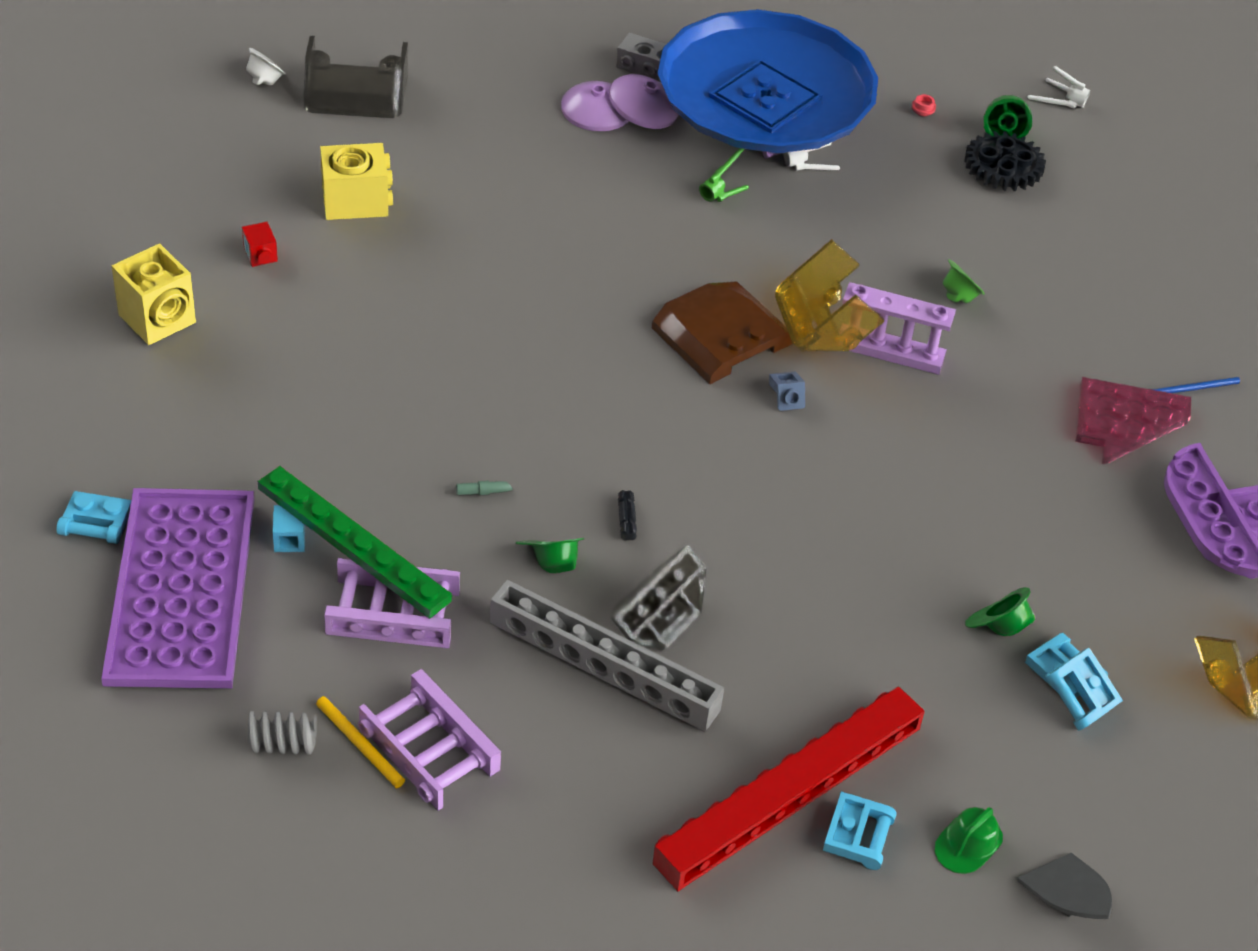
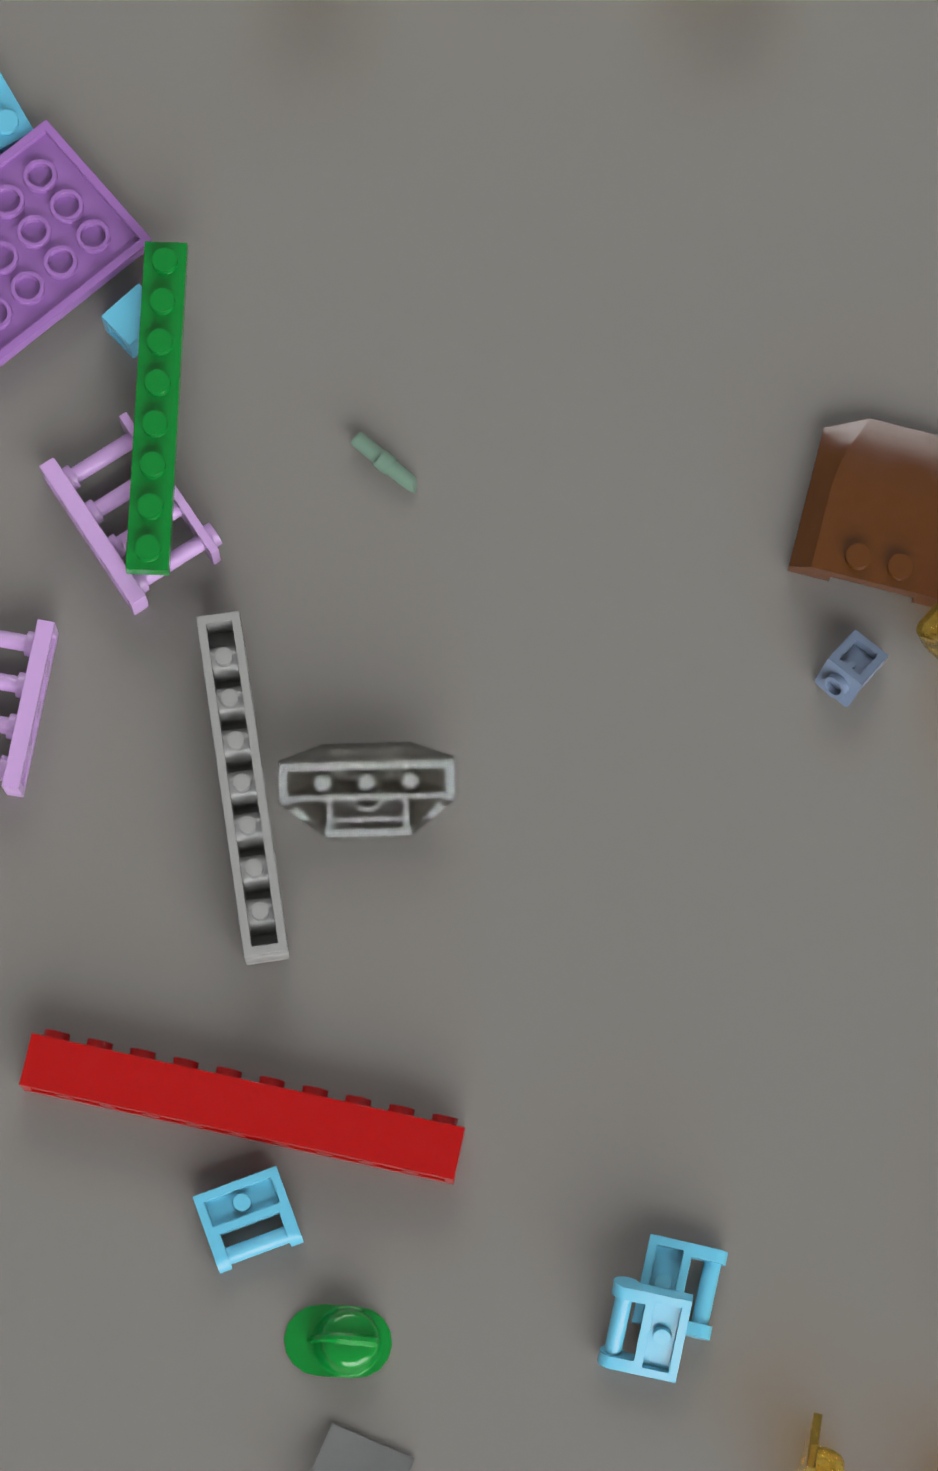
camera: 55 degrees right, 30 degrees up
(555, 555) = (348, 610): green piece -> none
(627, 515) = (482, 646): black axle -> none
(1005, 616) = (692, 1164): green piece -> none

